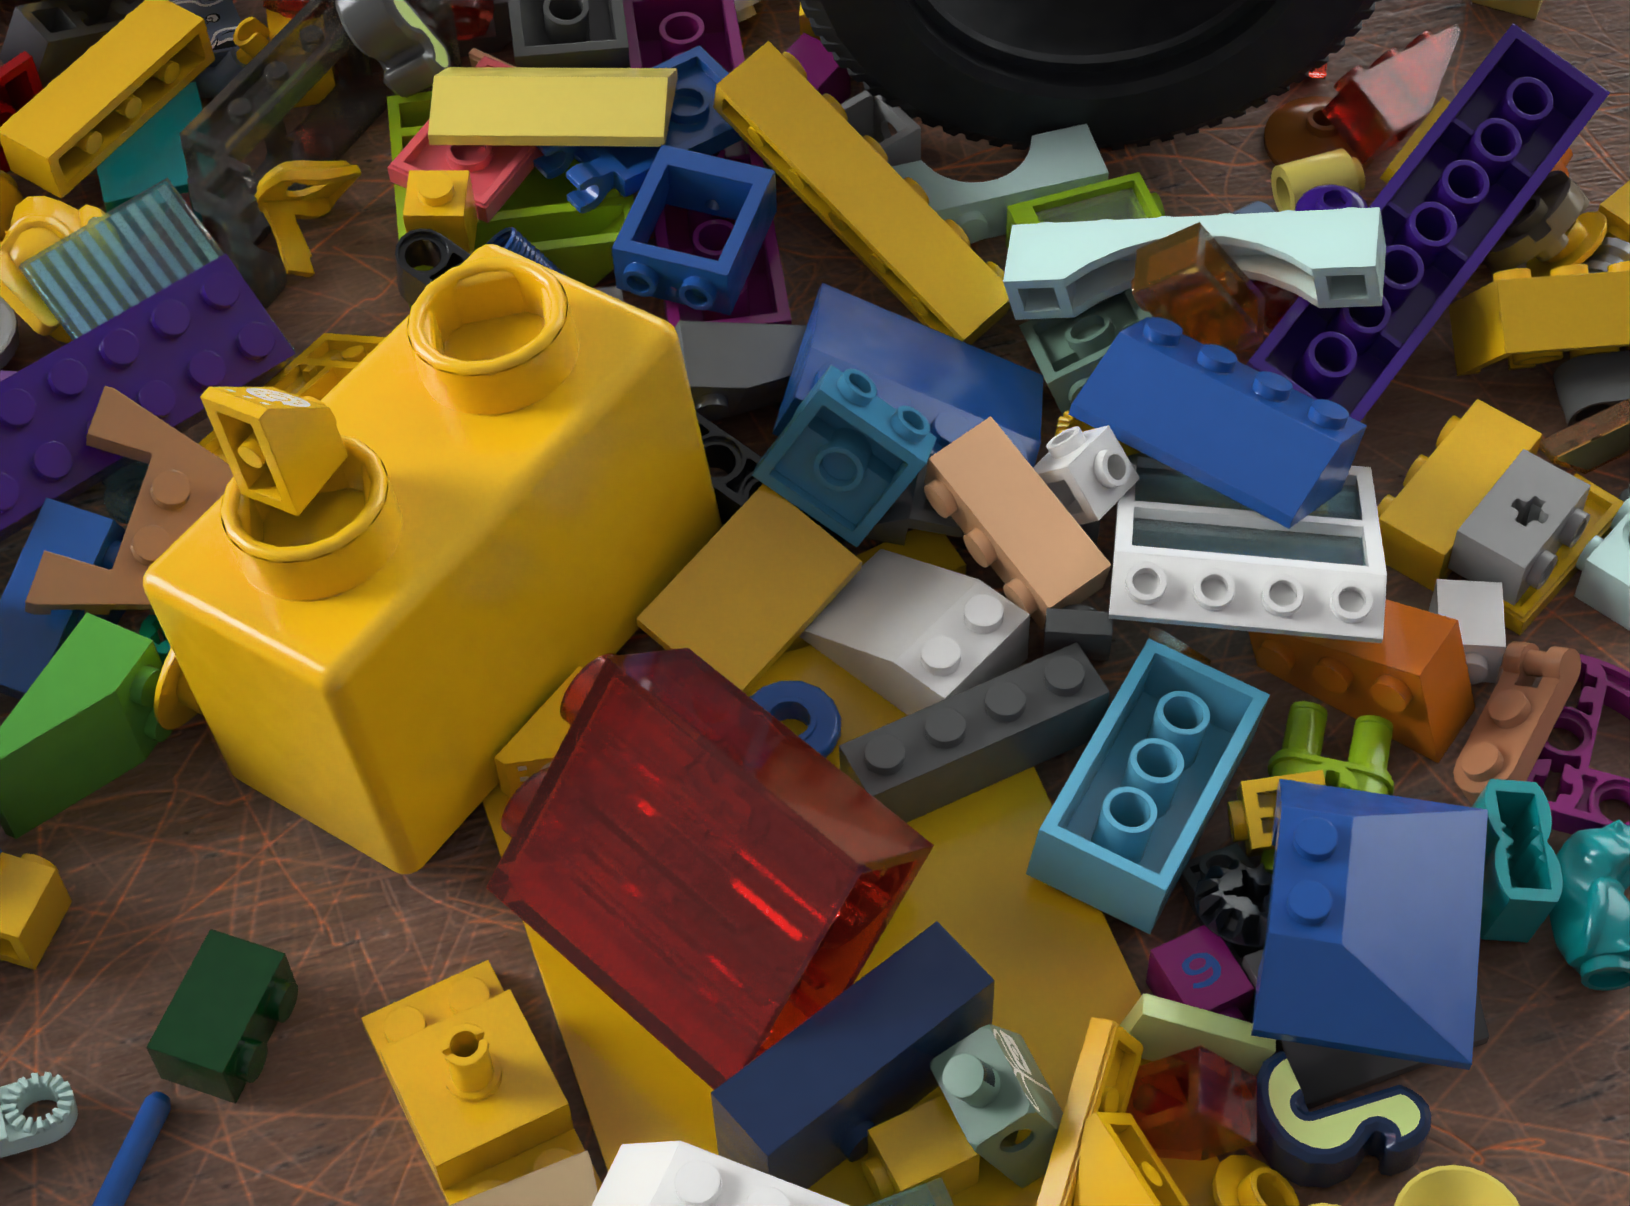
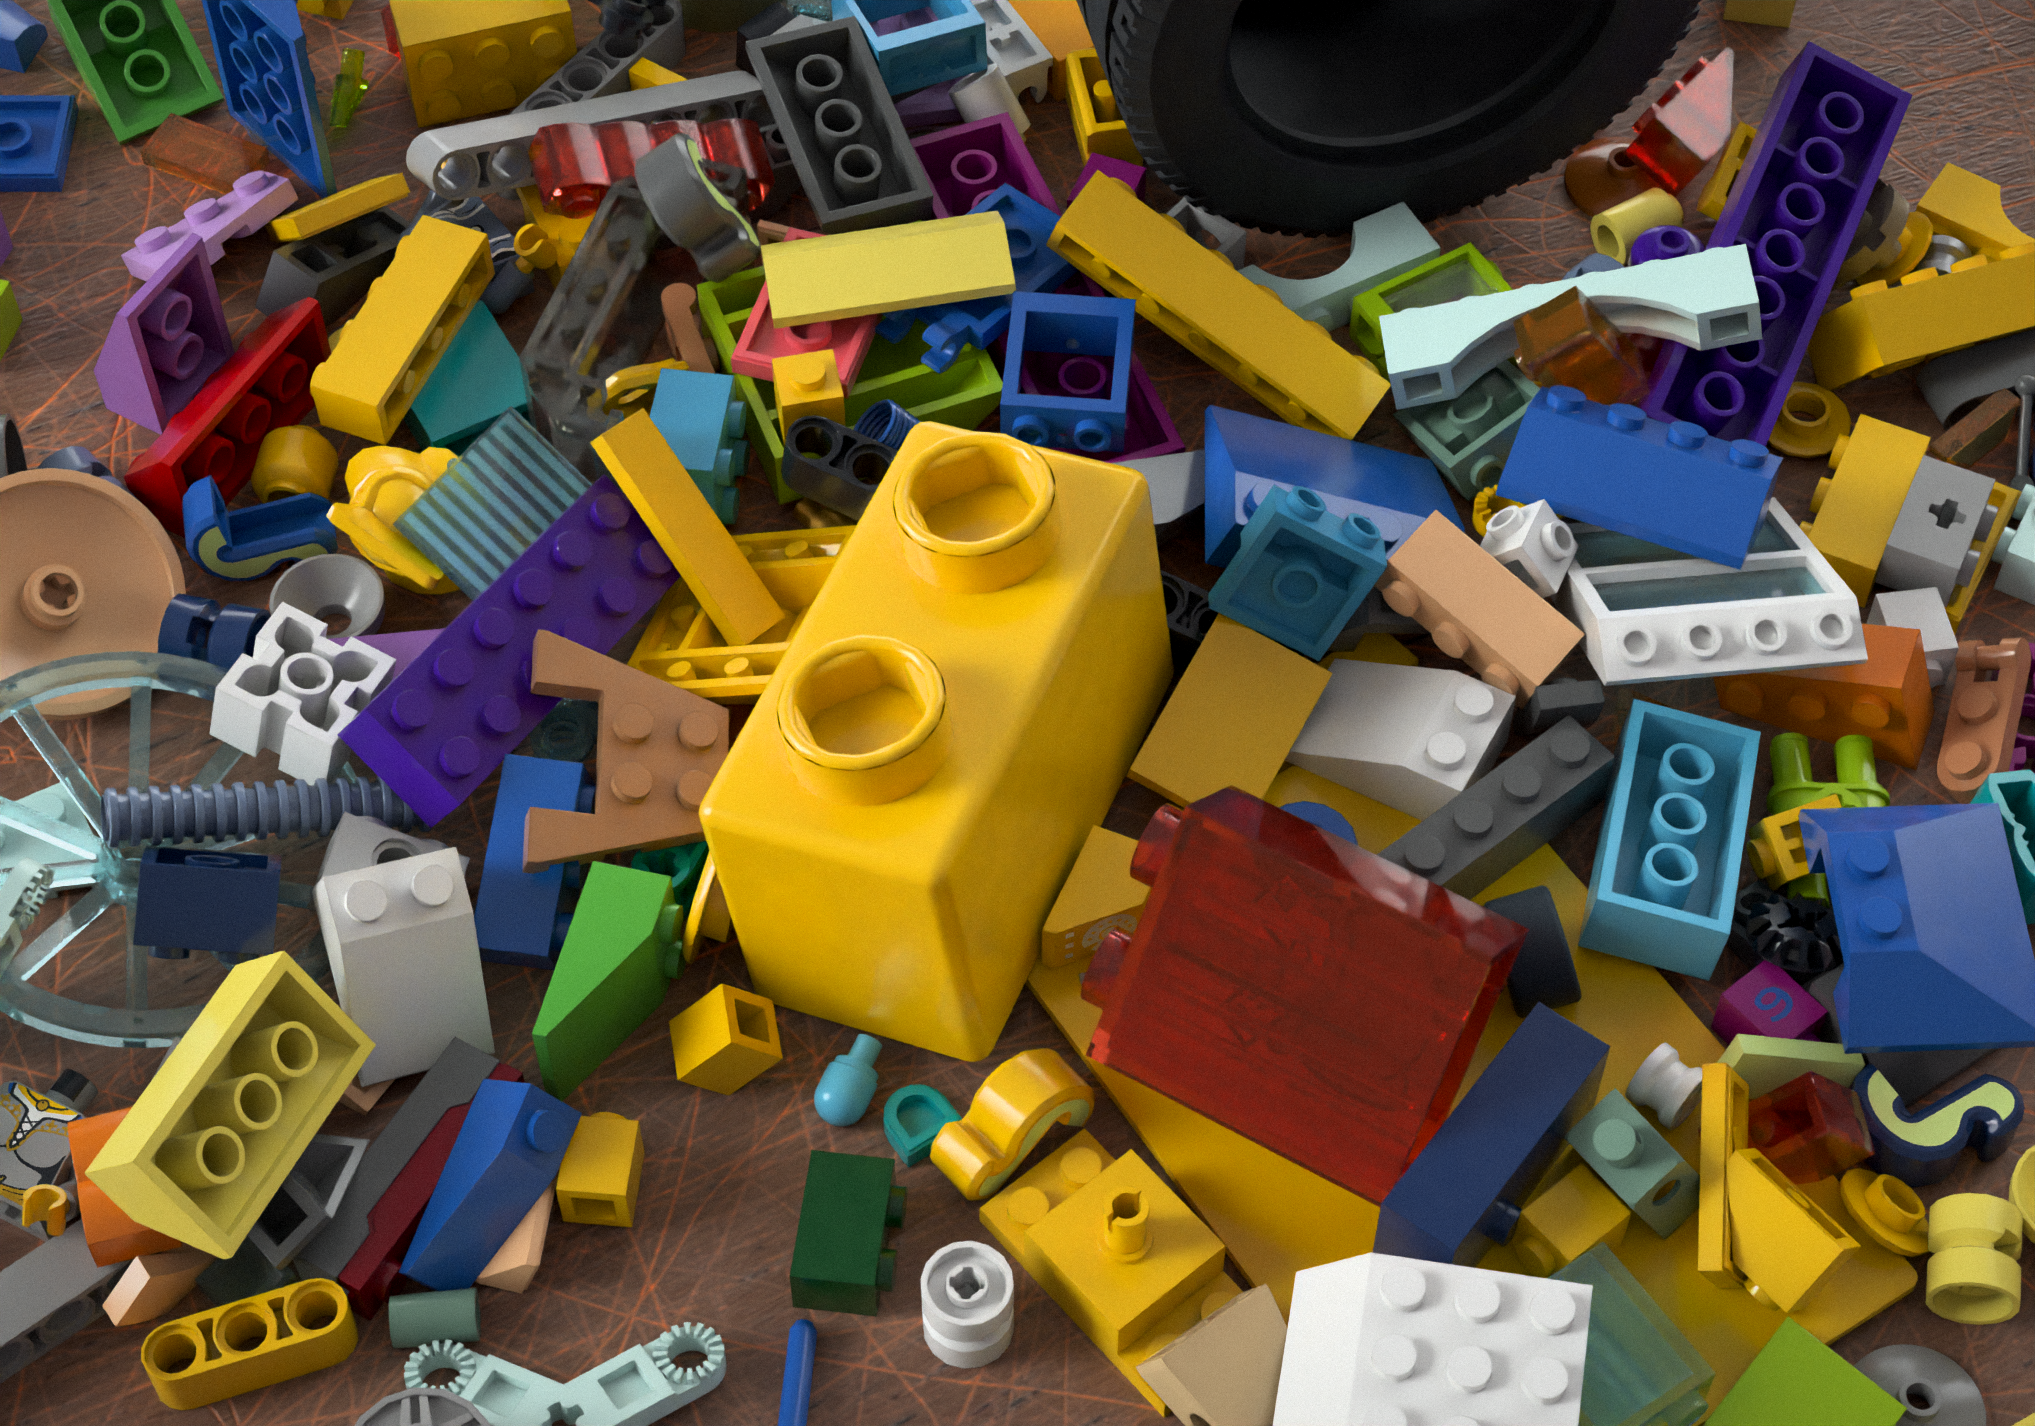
camera: 15 degrees left, 0 degrees up
(173, 807) = (725, 1039): none -> yellow brick
(275, 443) = (834, 656): yellow slope -> none
(281, 872) = (848, 1083): none -> medium azure cylinder
(282, 298) = (687, 529): none -> yellow tile
(310, 1109) = (967, 1304): none -> white wheel
(331, 254) = (705, 431): none -> dark azure brick
(337, 923) = (914, 1119): none -> teal tile
(374, 157) = (684, 331): none -> nougat plate
(412, 933) = (1009, 1119): none -> yellow animal
(971, 870) = (1544, 964): none -> black wheel
(1060, 1029) = (1666, 1086): none -> white wheel
(1424, 415) = (1813, 437): none -> yellow piece

